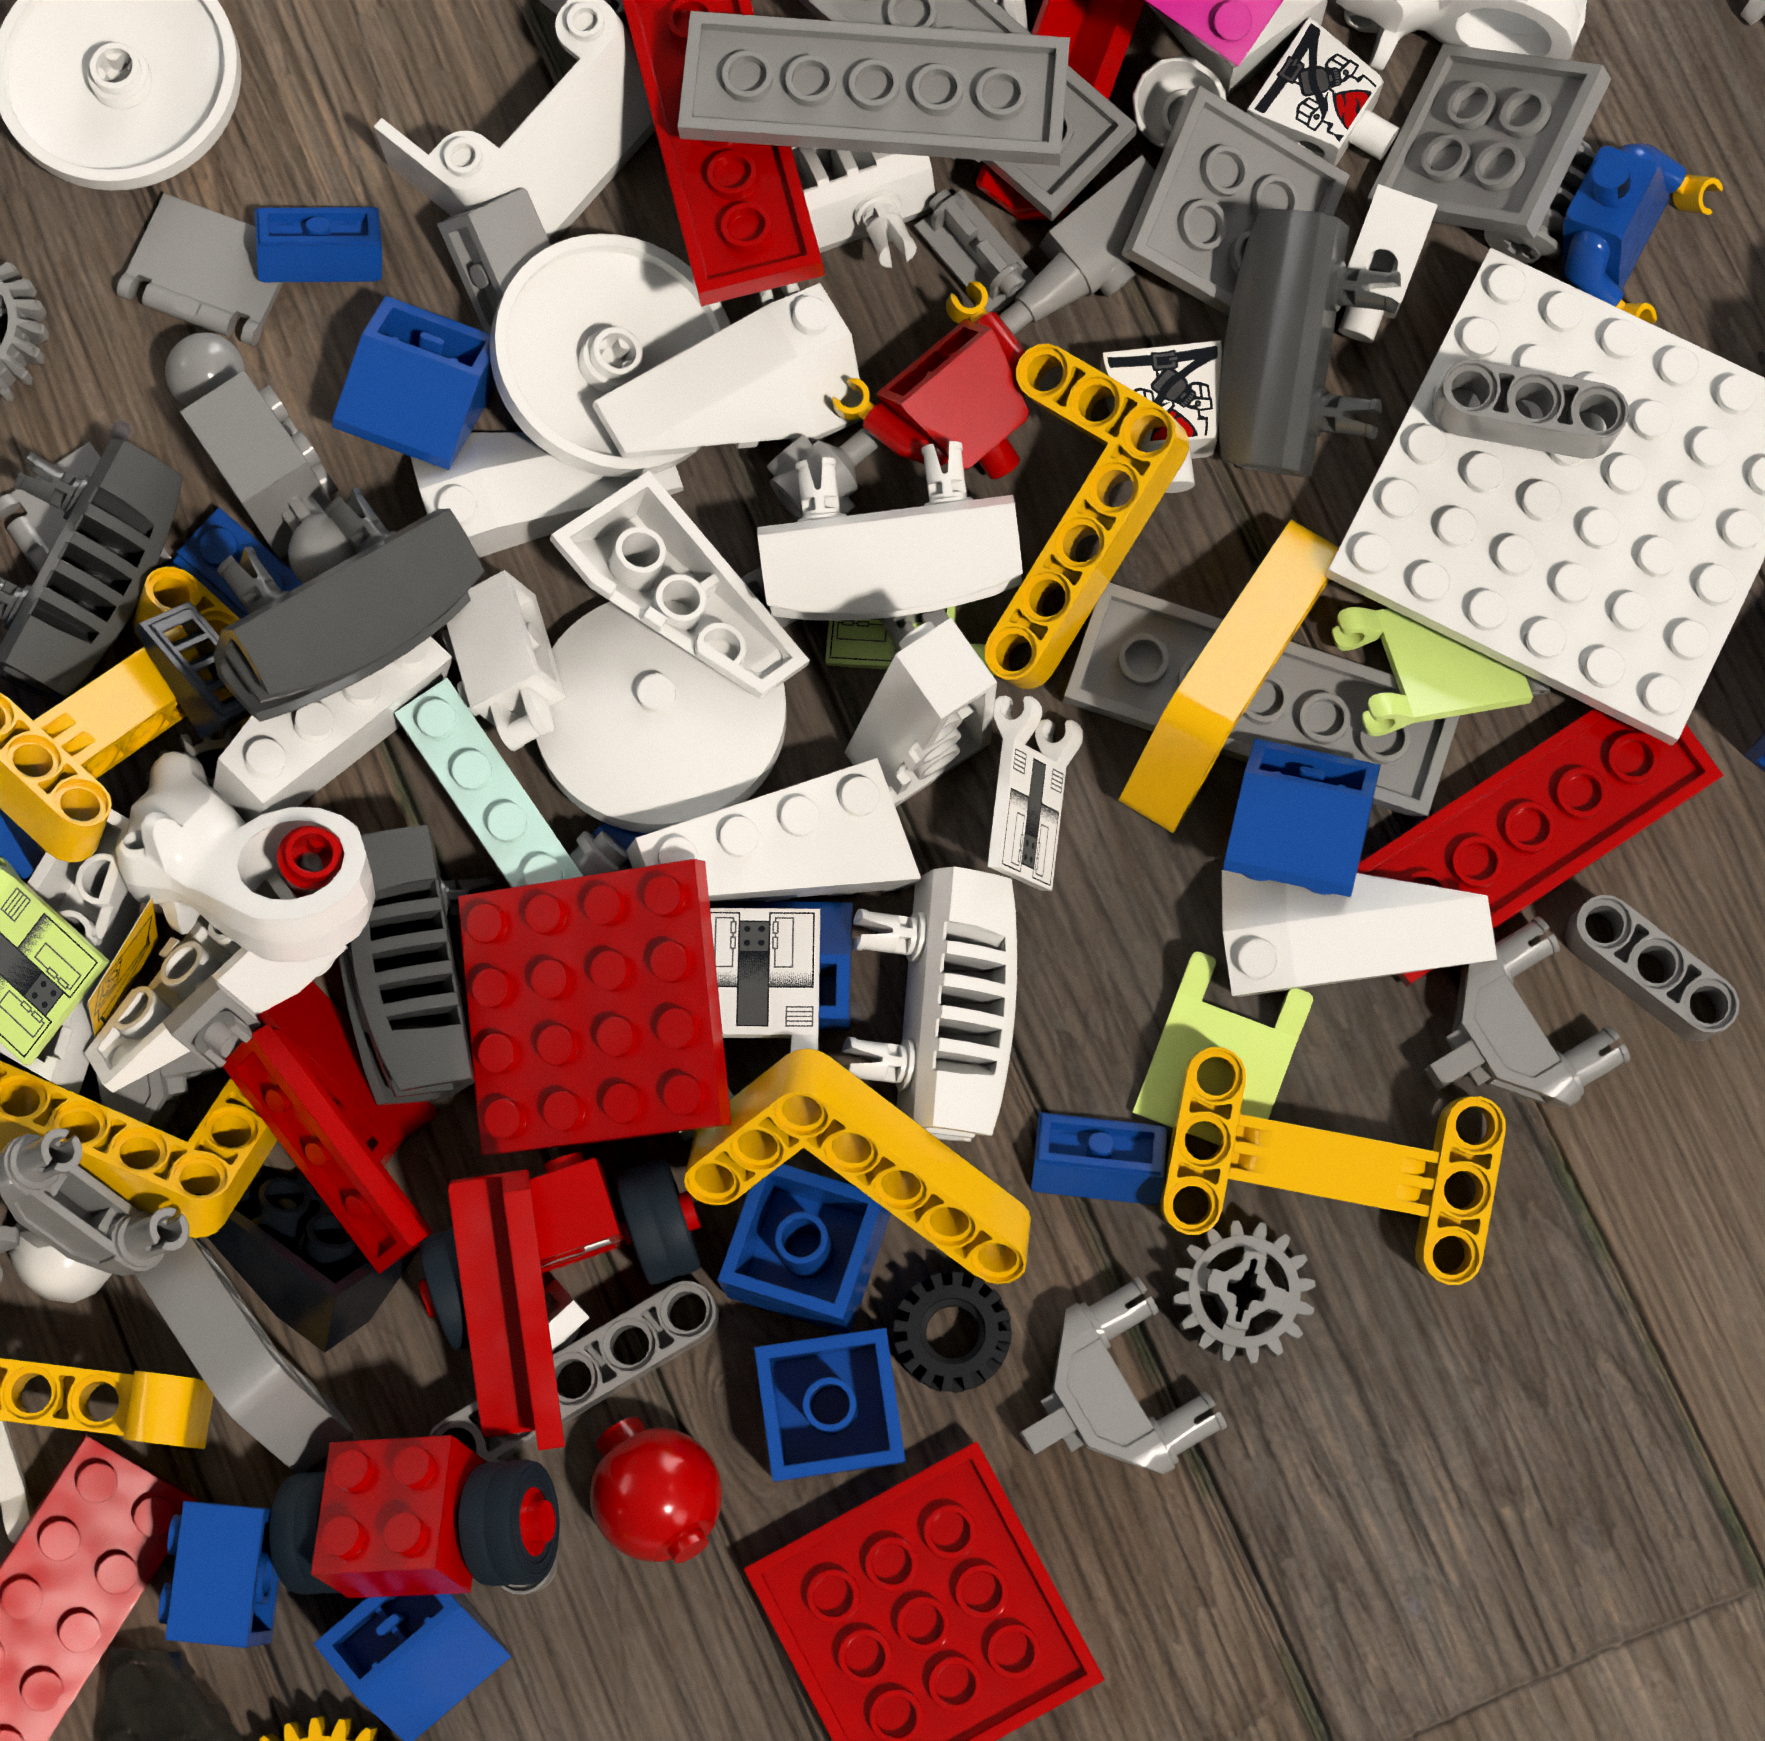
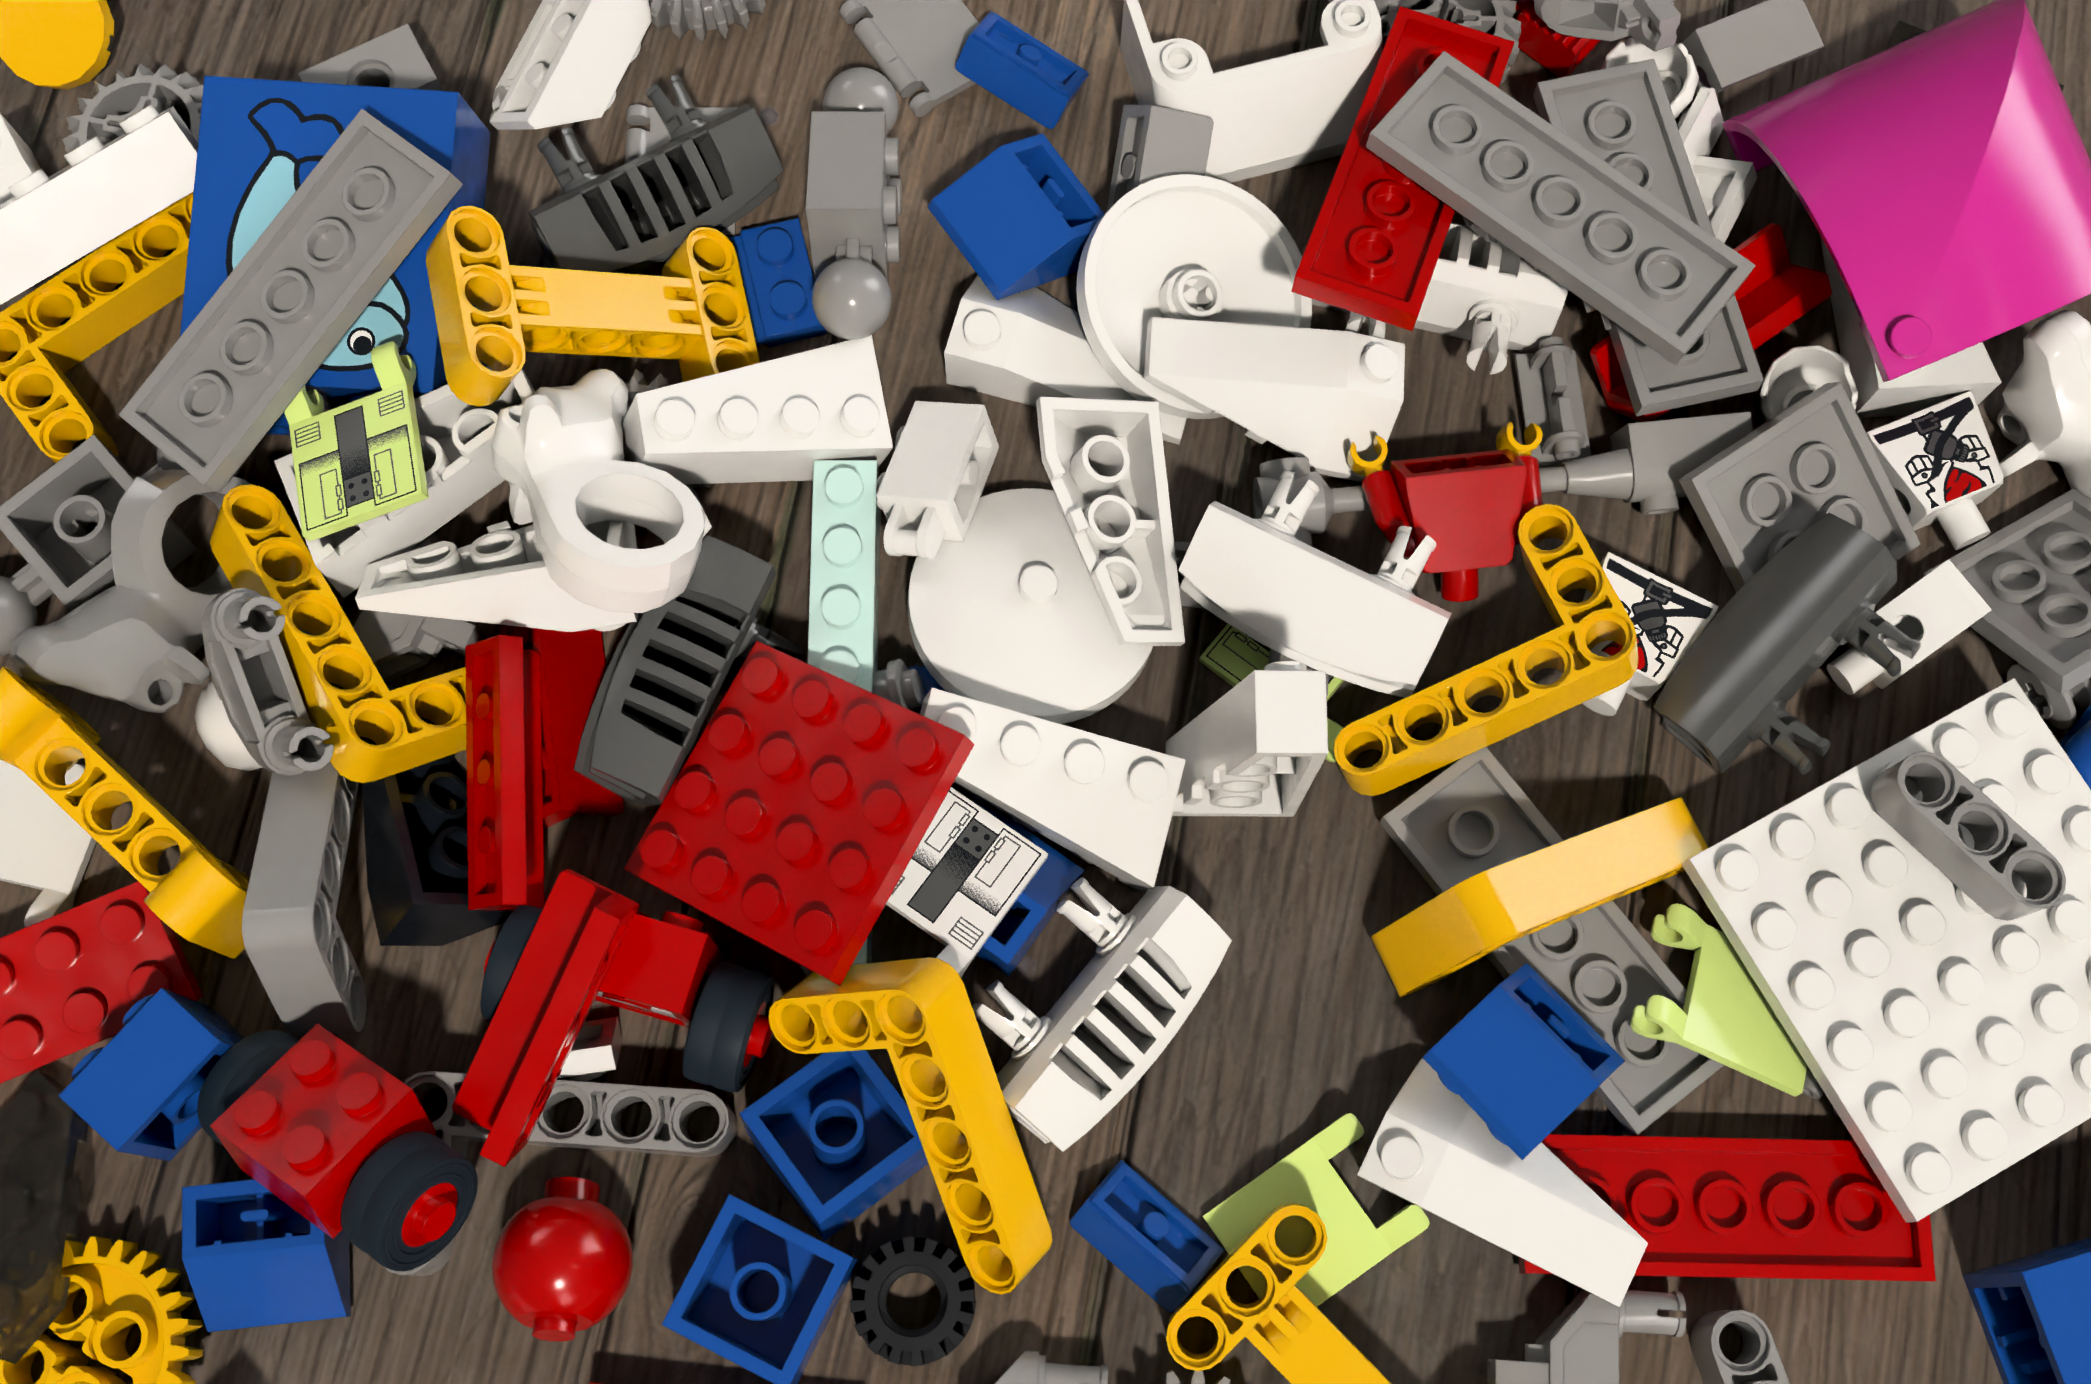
camera: 30 degrees right, 5 degrees down
(123, 969) = (445, 515): yellow sticker -> none
(193, 694) = (659, 337): black slope -> none
(212, 1023) = (477, 605): light grey tile -> none
(313, 849) = (647, 510): red cone -> none
(348, 618) = (825, 351): dark grey piece -> none
(1029, 793) = (1296, 878): white flag -> none

